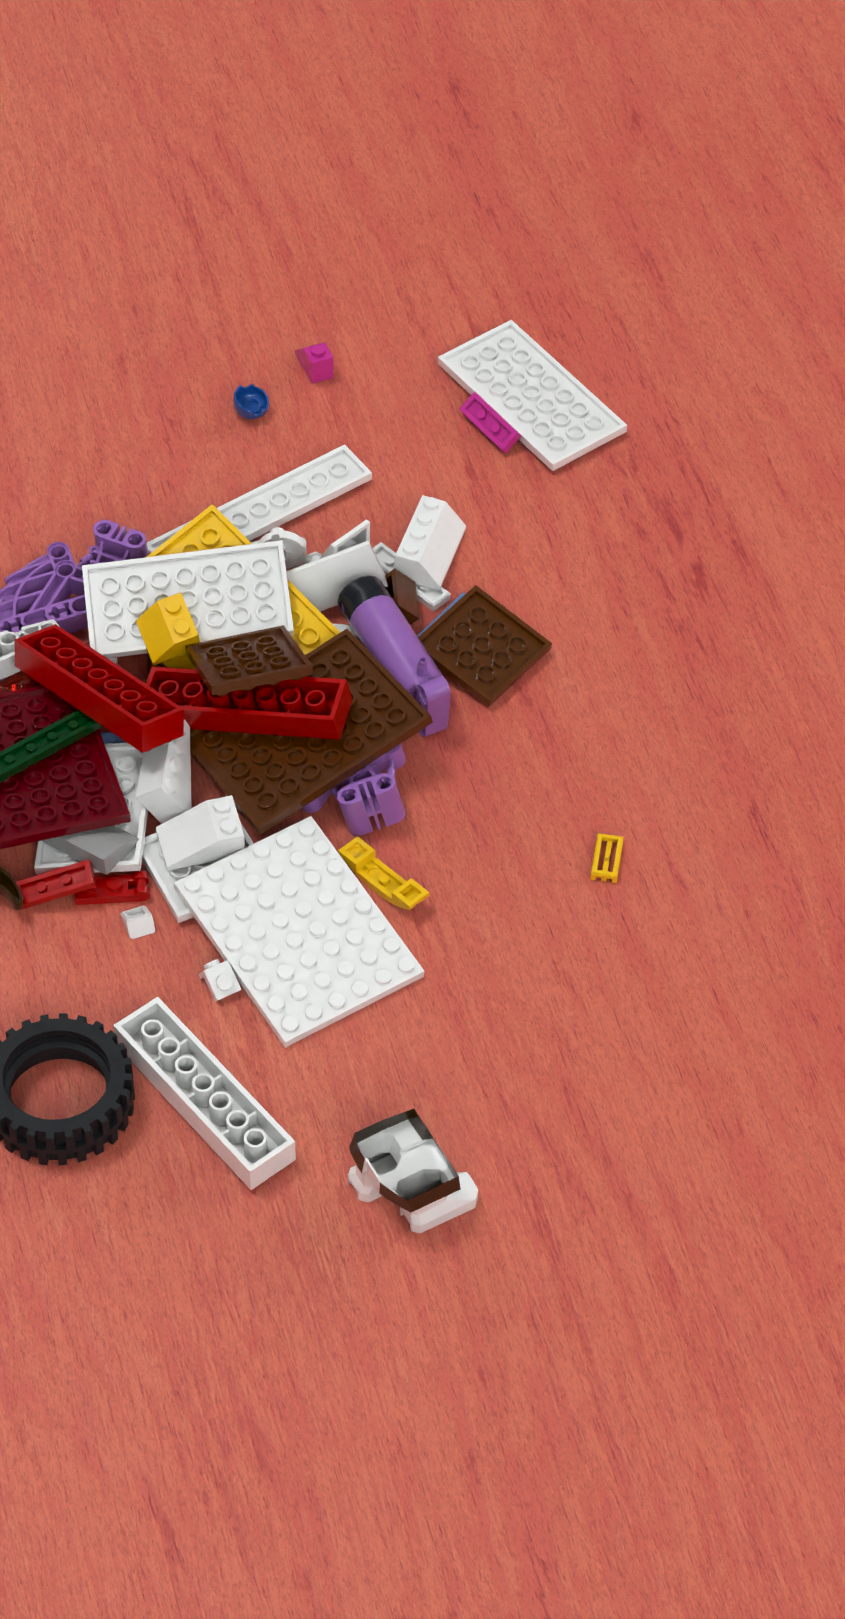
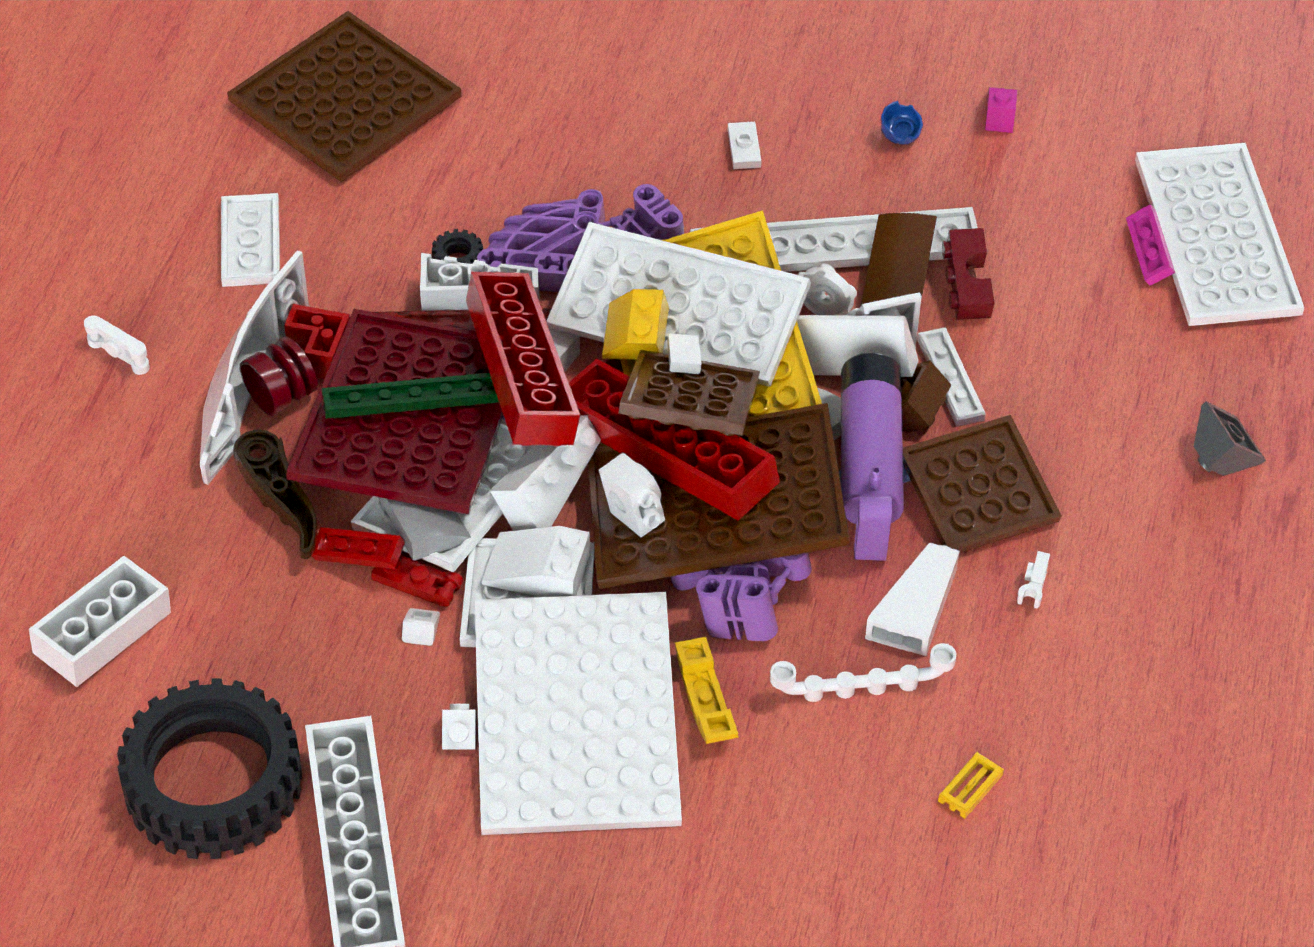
camera: 30 degrees right, 0 degrees up
(139, 465) = (744, 145): none -> white plate
(222, 634) = (684, 353): none -> white tile
(251, 753) = (632, 494): none -> white brick
(318, 505) = (899, 256): none -> reddish brown slope
(384, 510) = (969, 295): none -> dark red arch
(430, 543) = (993, 349): white slope -> none
(436, 836) = (784, 677): none -> white bar
(491, 749) = (915, 603): none -> white slope
(562, 693) = (1036, 575): none -> white plate
(631, 545) = (1224, 442): none -> dark grey slope

